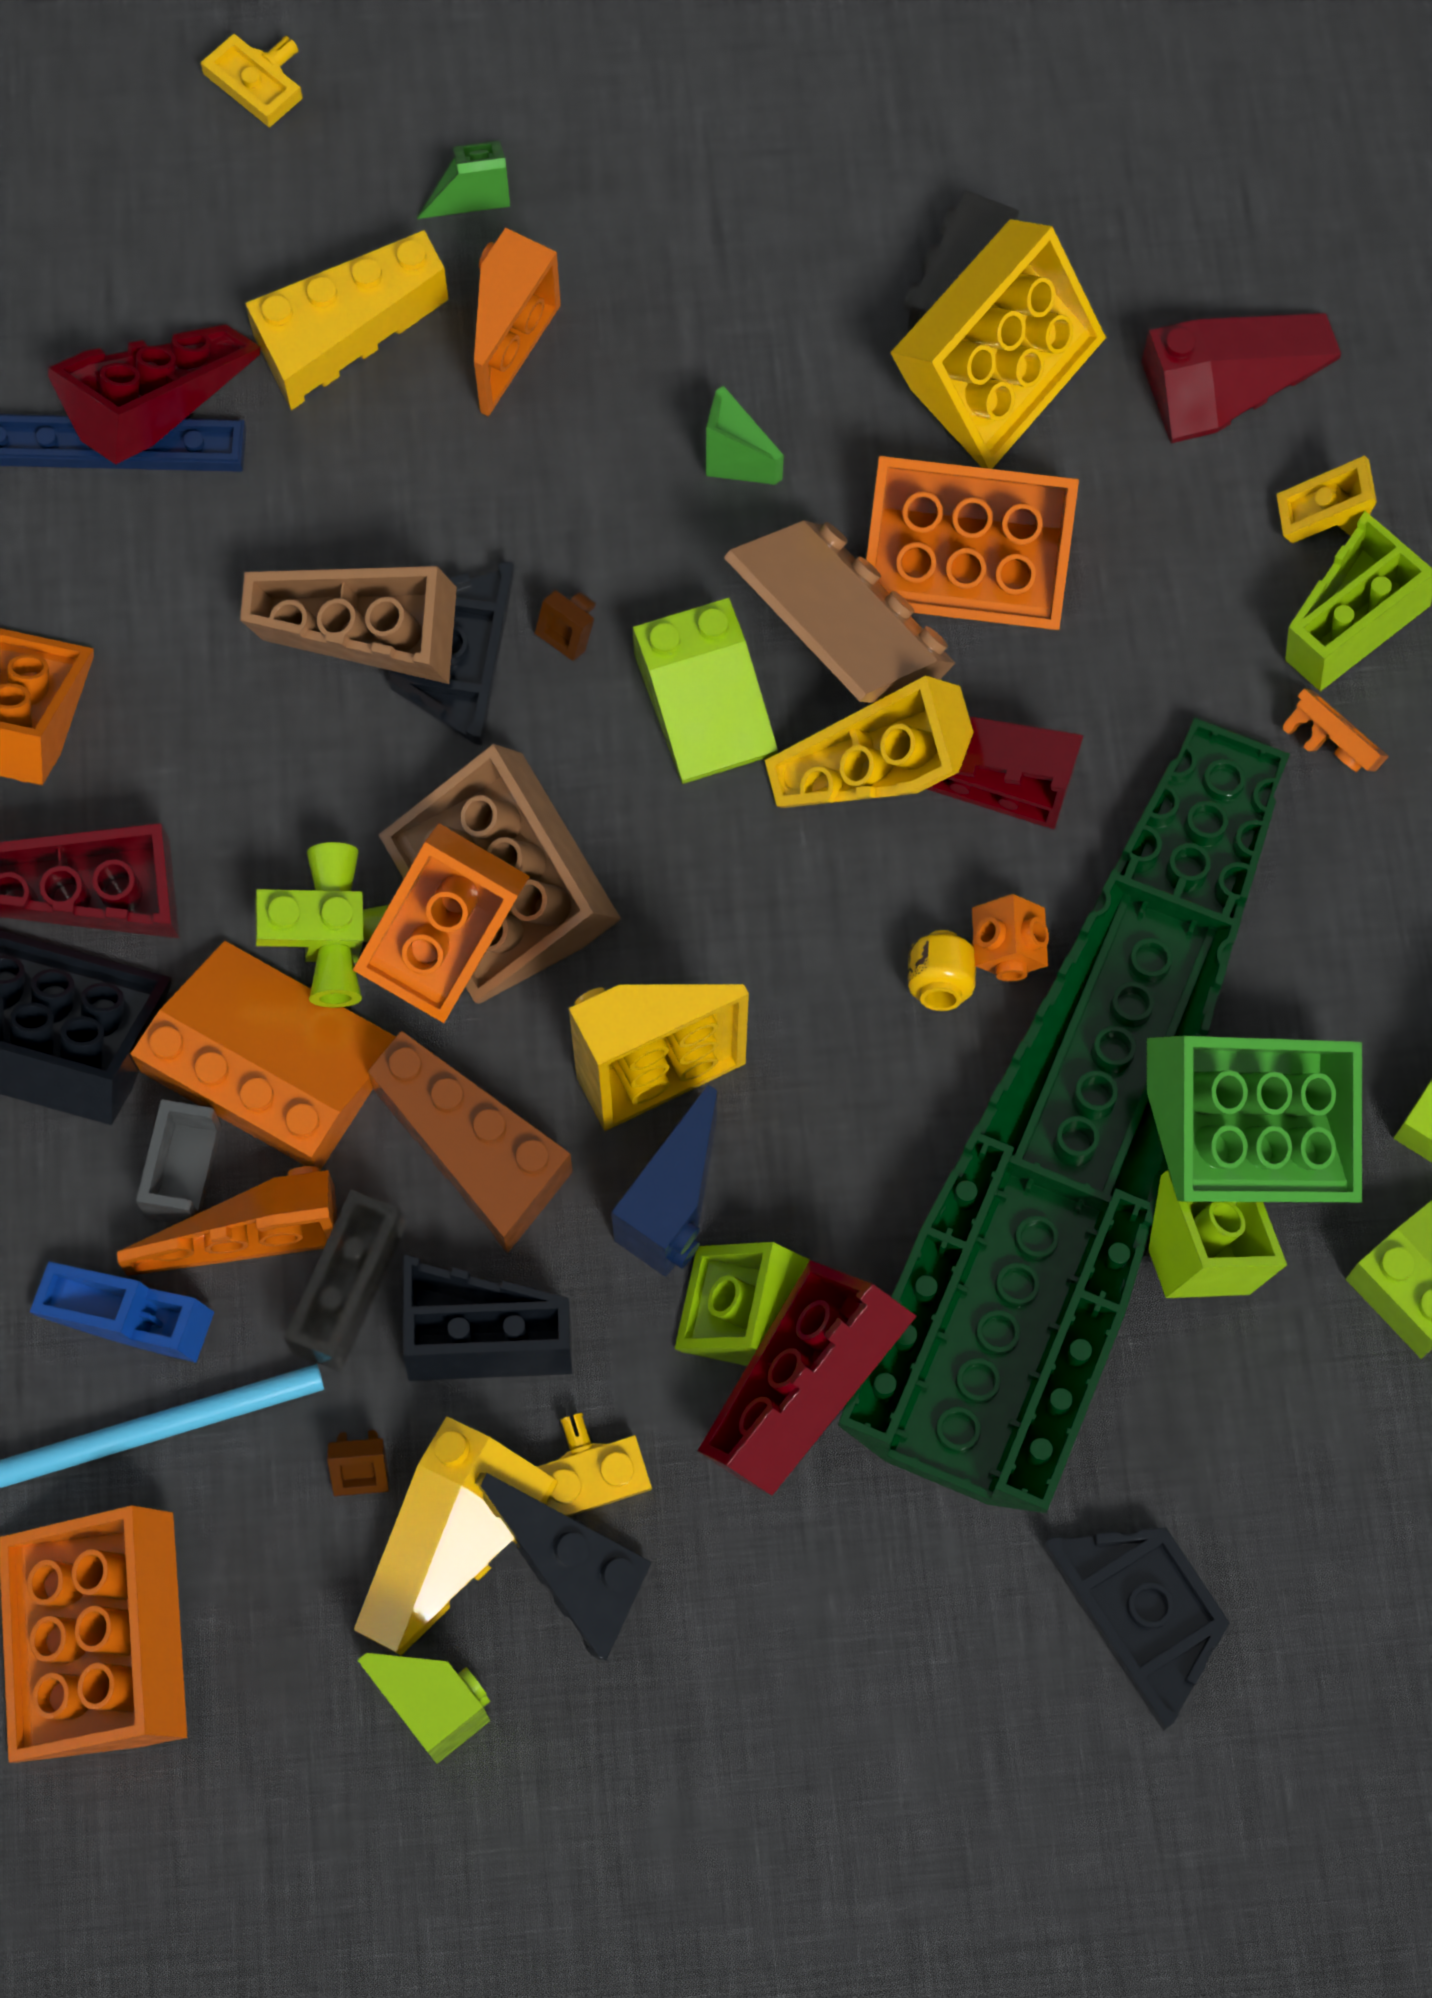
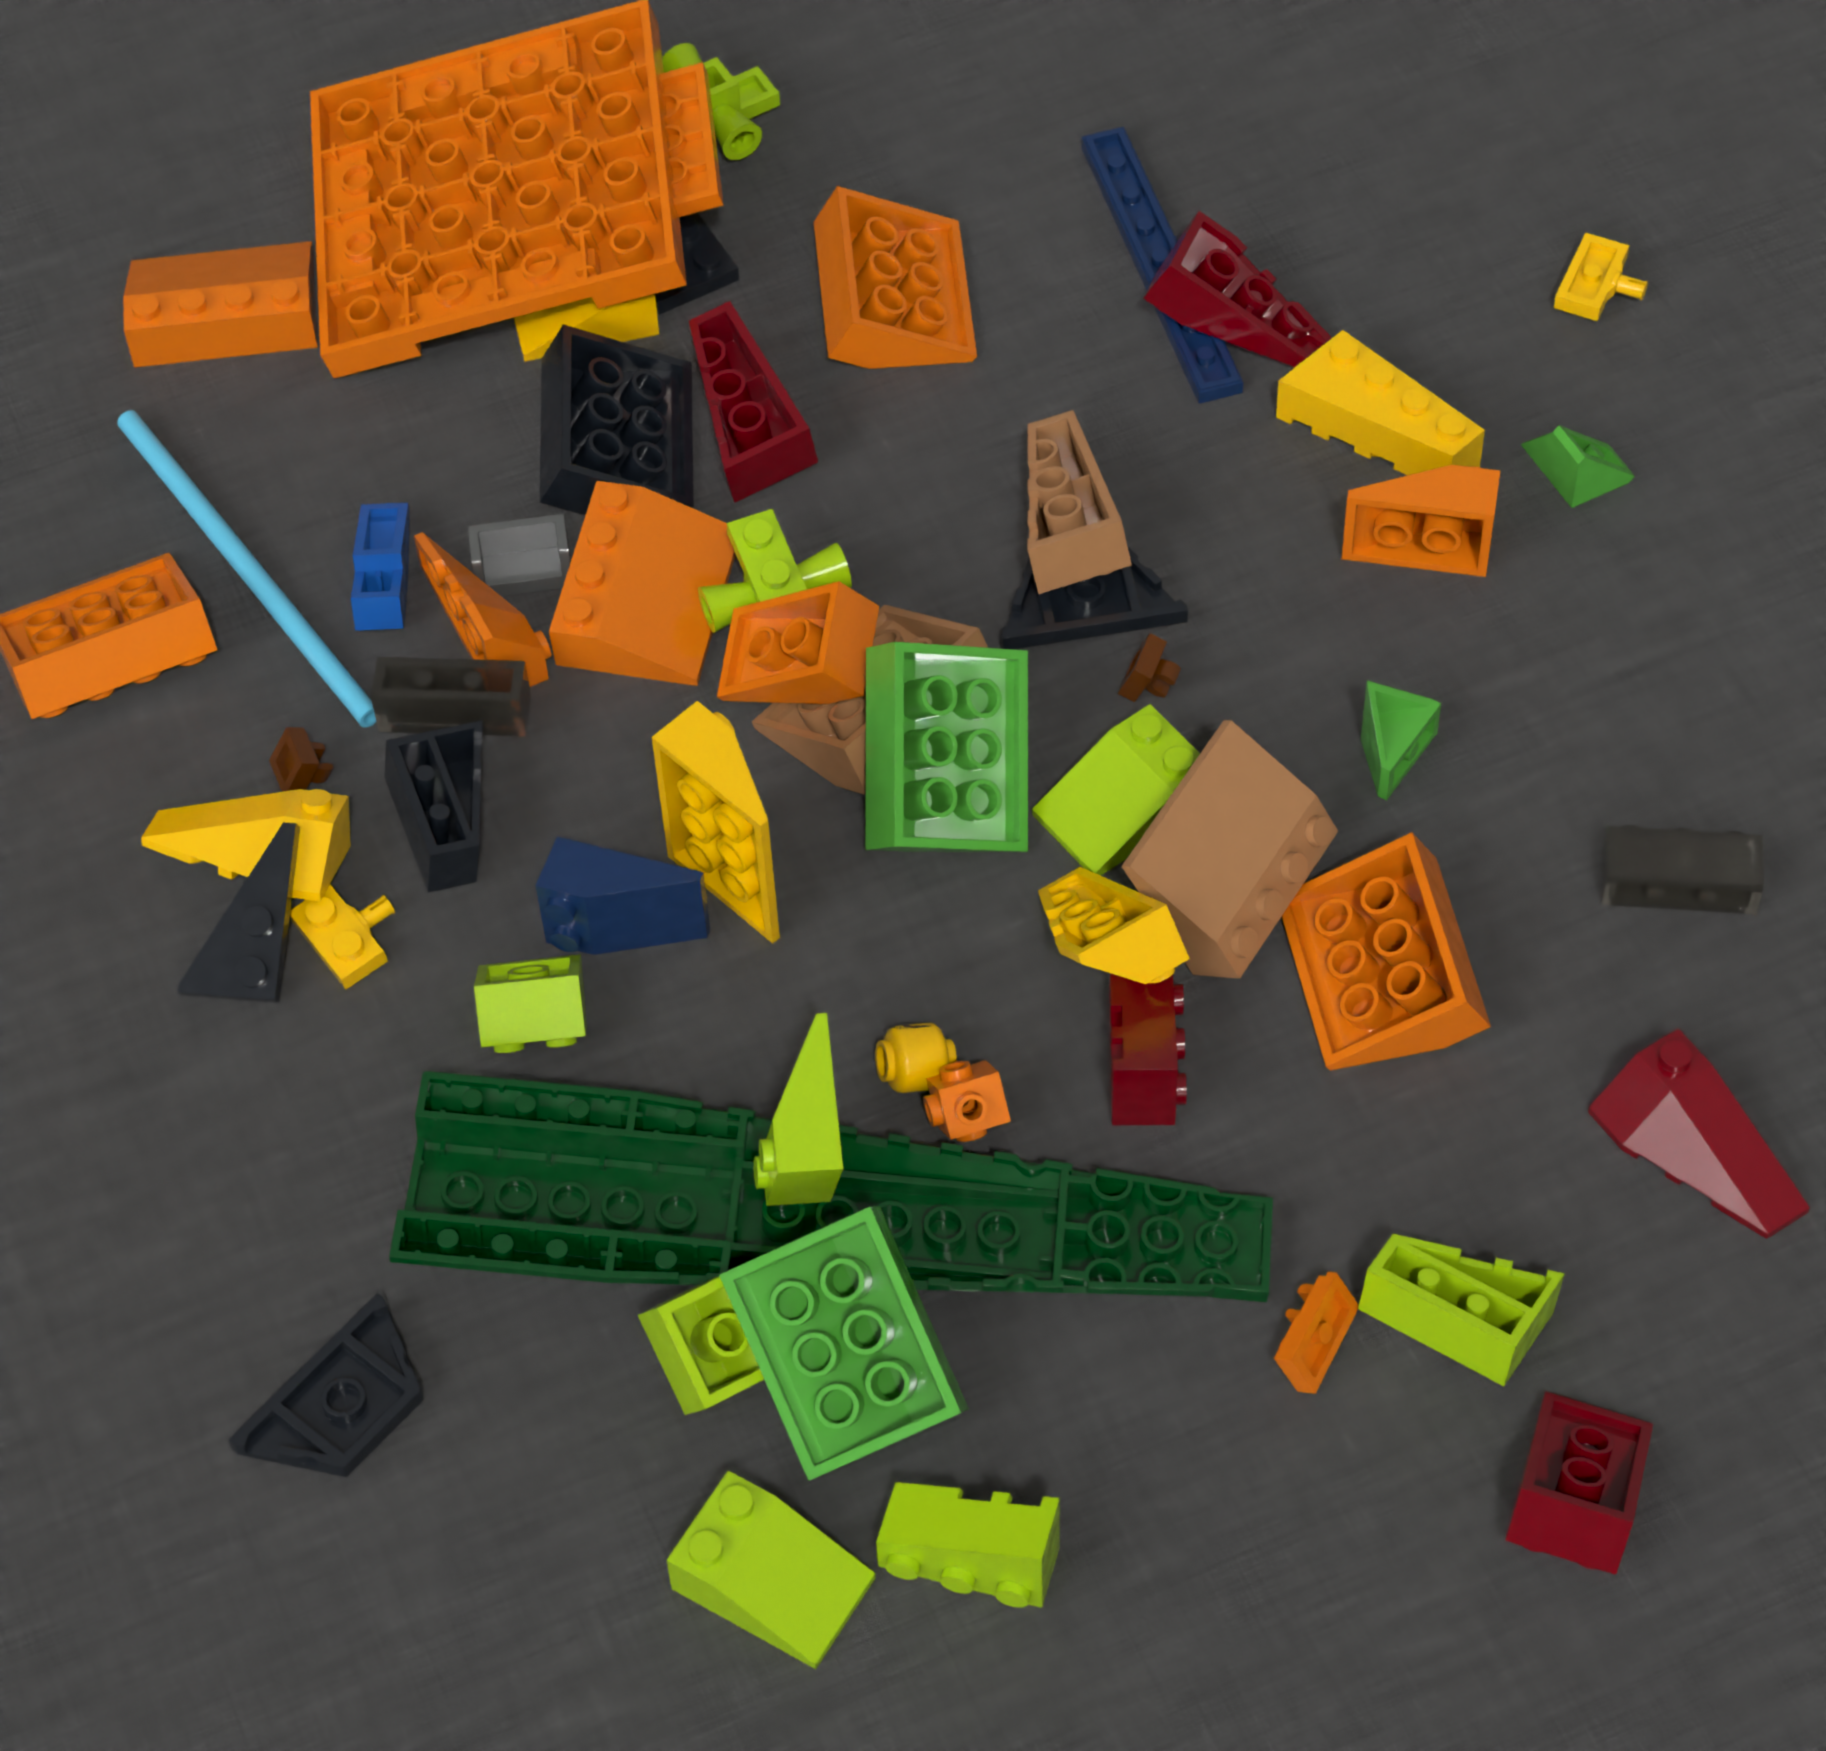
camera: 75 degrees right, 15 degrees down
(431, 1699) = (94, 861): lime slope -> none
(476, 1142) = (607, 756): dark orange wedge -> none
(625, 824) = (946, 748): none -> bright green slope
(803, 1374) = (458, 1031): dark red wedge -> none
(1001, 341) = (1600, 910): yellow slope -> none
(1032, 1074) = (803, 1146): none -> lime slope
(1328, 501) = (1575, 1250): yellow slope -> none

